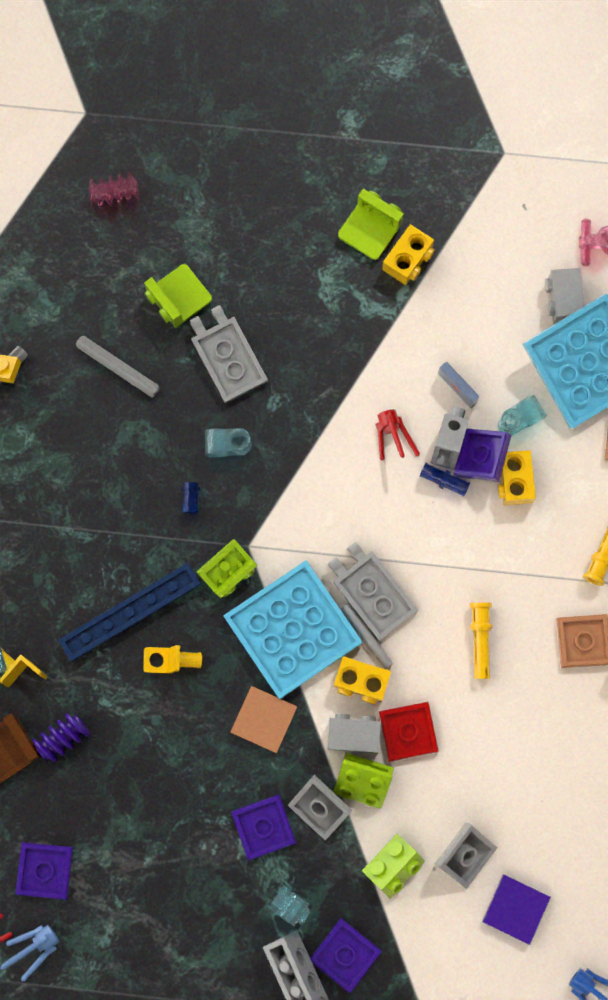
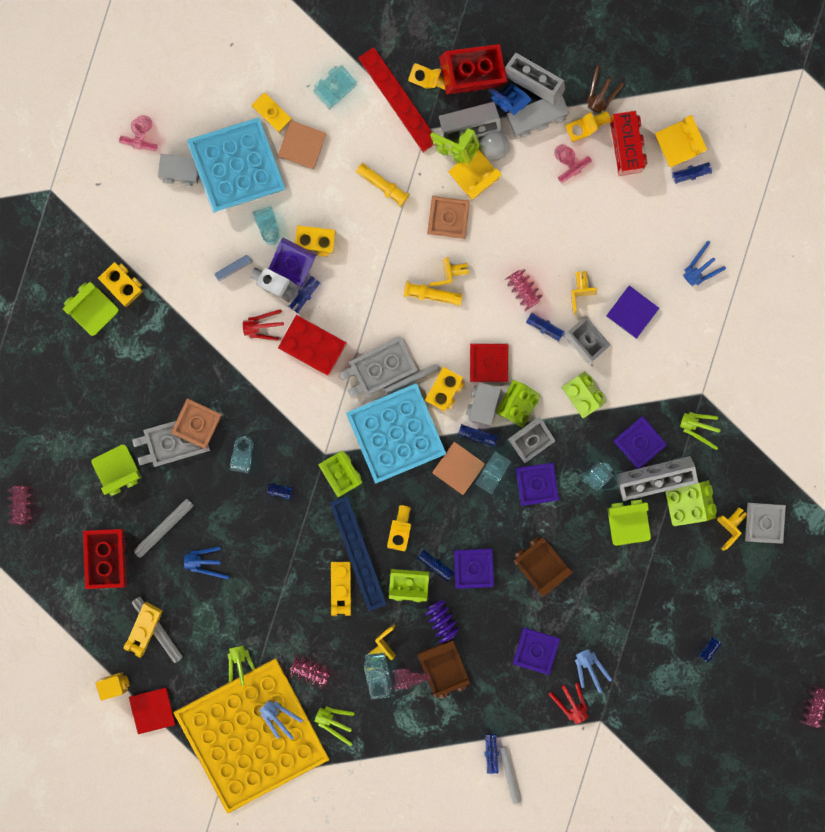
camera: 80 degrees left, 10 degrees up
(65, 301) = (104, 558): none -> red brick
(82, 412) = (193, 561): none -> blue plant
(82, 599) = (340, 588): none -> yellow plate
(100, 685) = (408, 585): none -> lime bracket
(132, 714) = (435, 565): none -> clear blue pin
(137, 766) = (473, 568): none -> dark purple tile
(157, 855) = (541, 565): none -> reddish brown panel
(236, 962) = (629, 522): none -> lime bracket
(254, 378) = (196, 423): none -> nougat tile
(266, 764) = (492, 472): none -> clear light blue brick
(311, 735) = (477, 435): none -> clear blue pin
(382, 501) = (312, 345): none -> red brick
(471, 795) = (545, 326): none -> clear blue pin
(514, 757) = (524, 289): none -> clear pink piece
(515, 656) = (449, 271): none -> yellow bracket
(531, 835) = (582, 289): none -> yellow bracket

